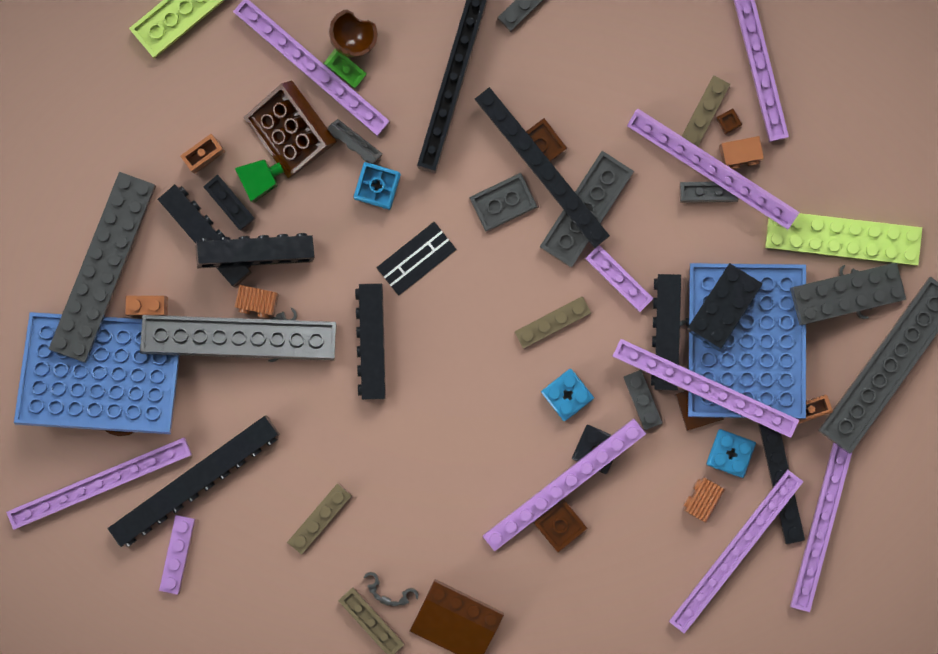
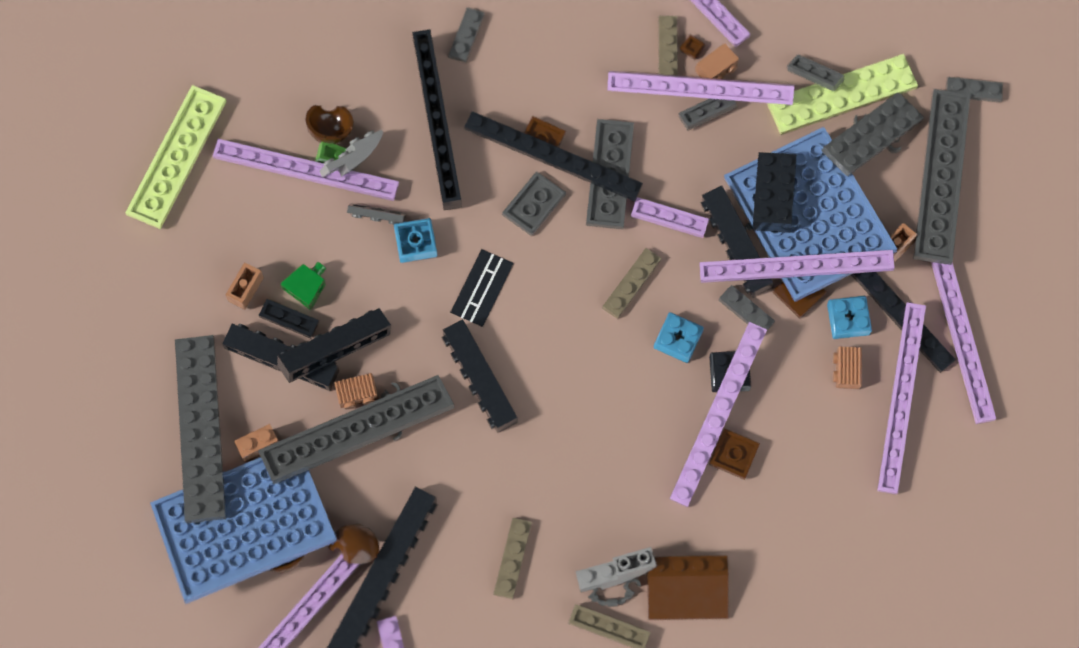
camera: 35 degrees left, 15 degrees down
(188, 442) = (356, 544): none -> reddish brown cylinder
(289, 128) = (312, 230): reddish brown slope -> none
(361, 78) = (354, 154): none -> light grey slope
(401, 578) = (617, 571): none -> light grey slope
(828, 206) = (815, 72): none -> dark grey plate

